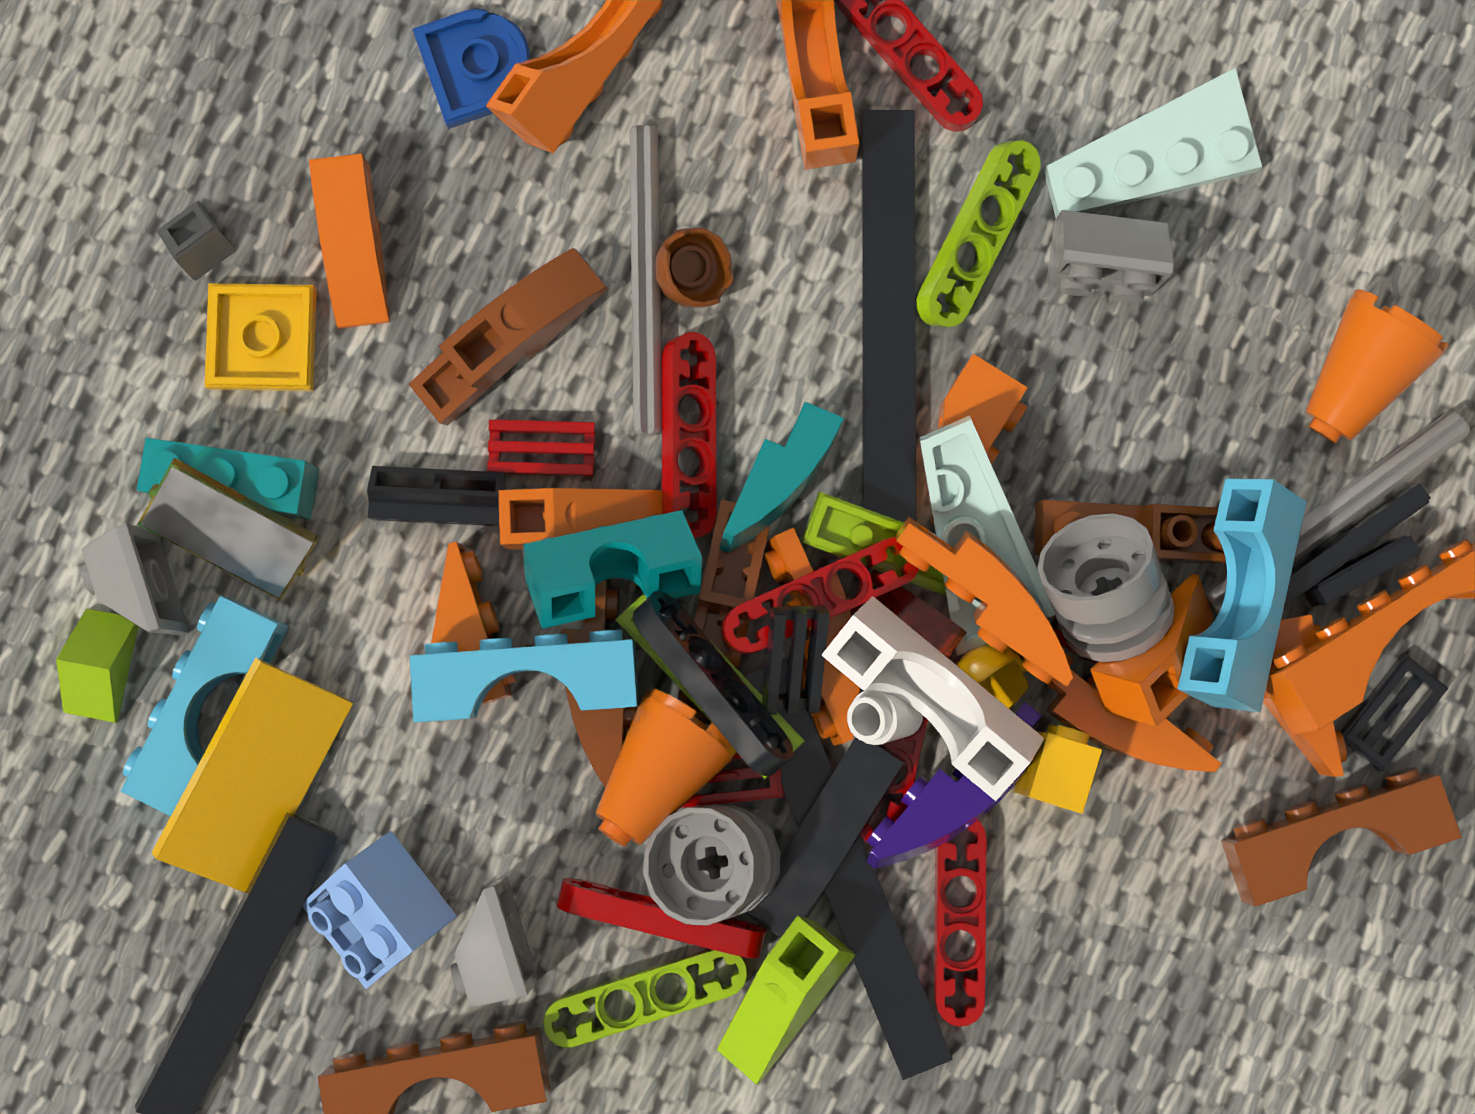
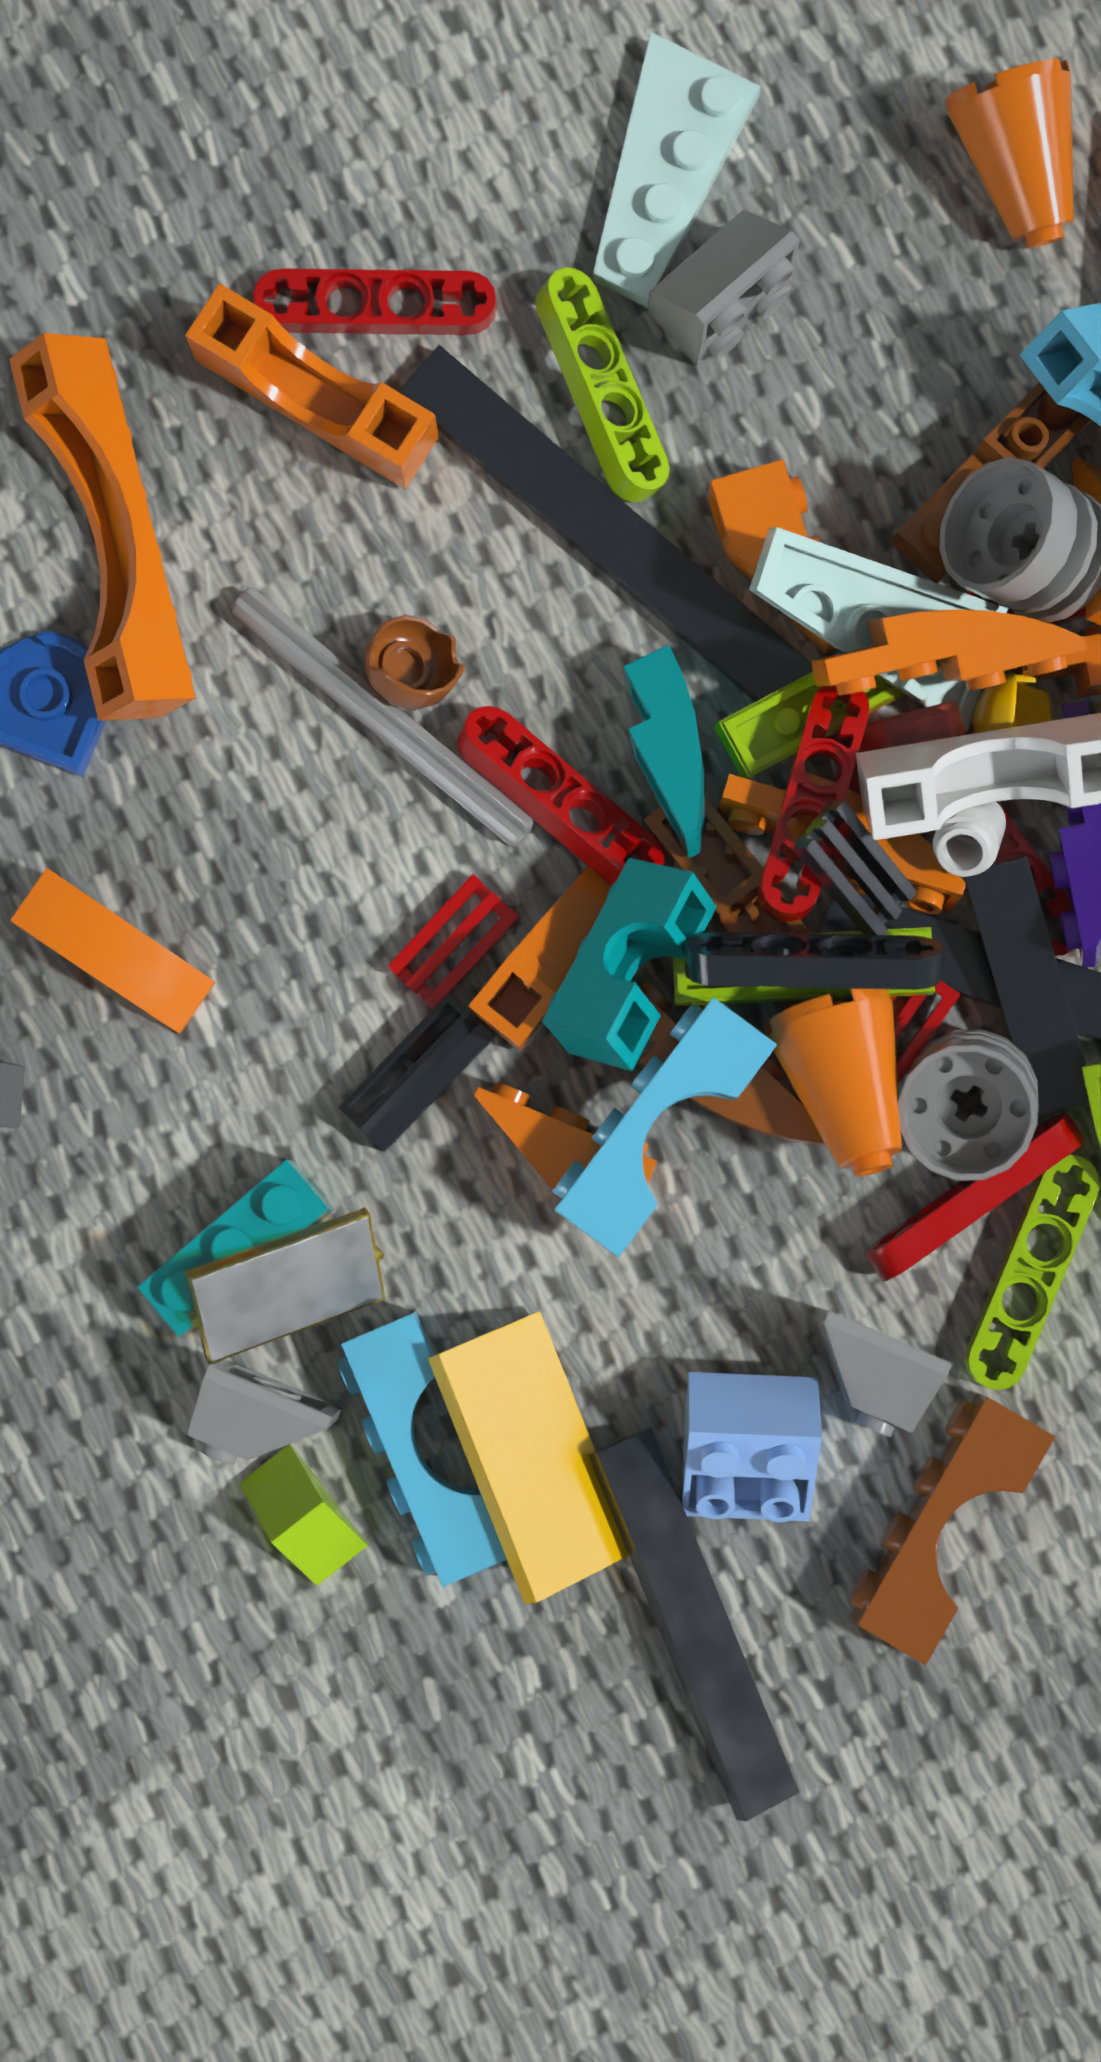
camera: 50 degrees left, 0 degrees up
(260, 337) = (126, 1111): yellow tile -> none
(504, 332) = (325, 881): dark orange slope -> none

